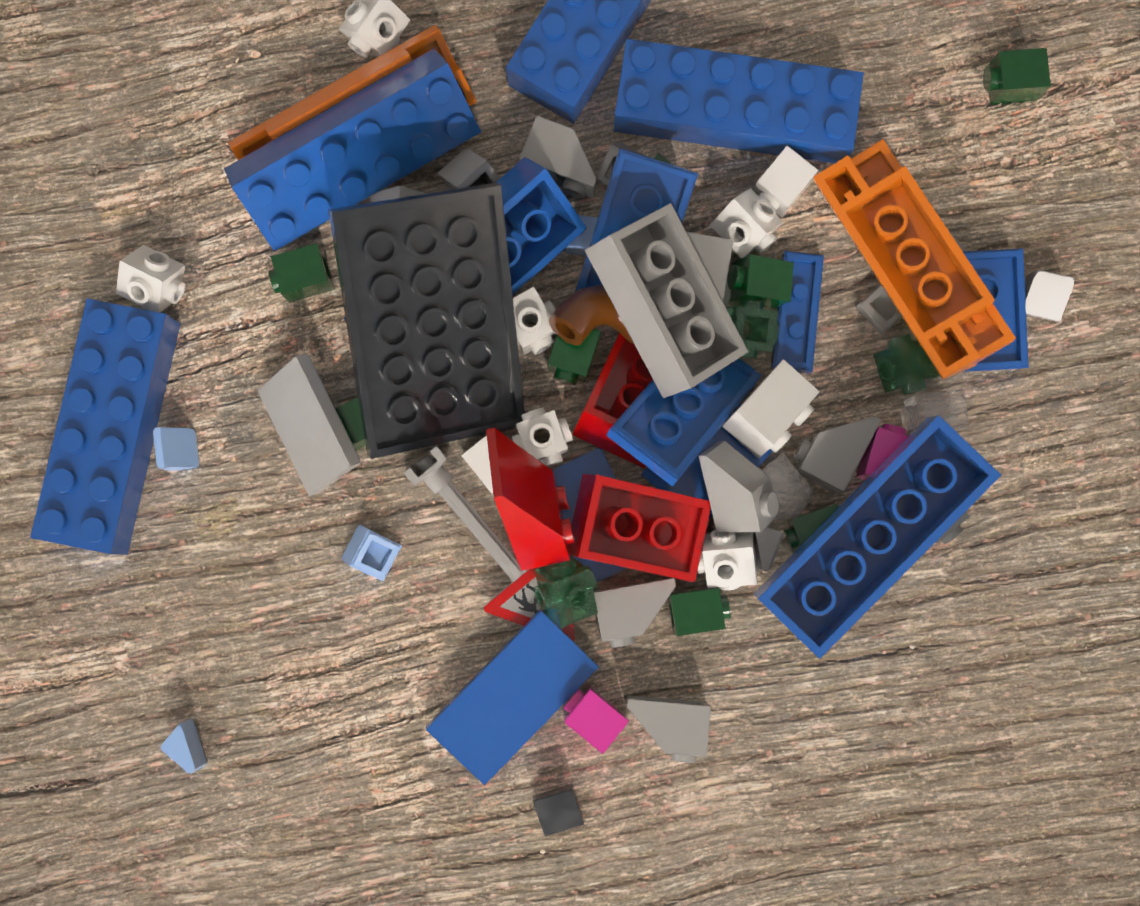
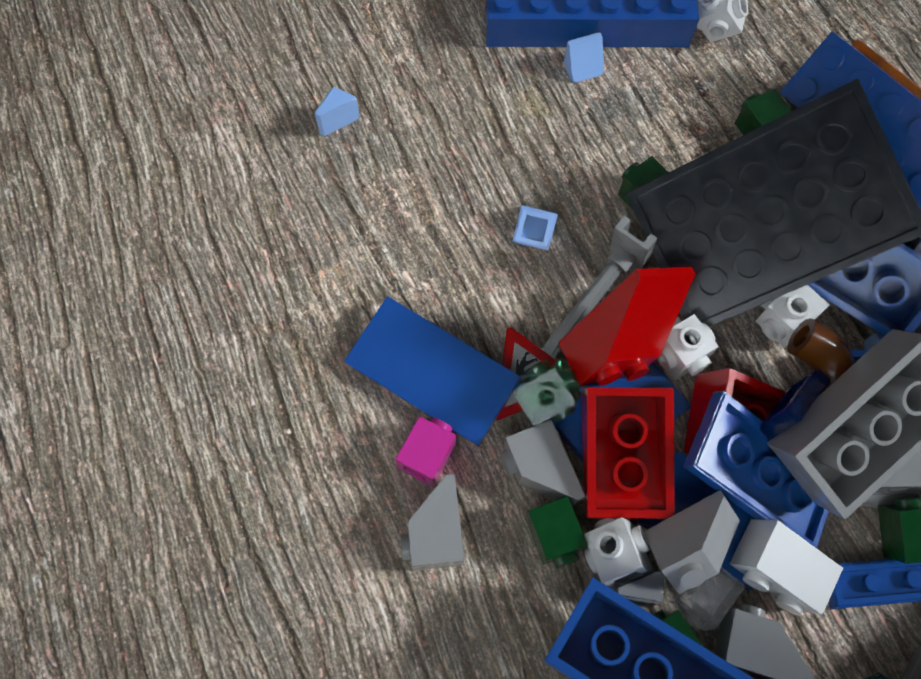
camera: 75 degrees right, 15 degrees down
(308, 425) = (637, 147): light grey tile -> none
(558, 810) = (331, 435): black slope -> none
(573, 361) = (771, 363): dark green brick -> none
(631, 360) = (794, 404): none -> clear blue tile
(761, 323) = (875, 531): clear green brick -> none

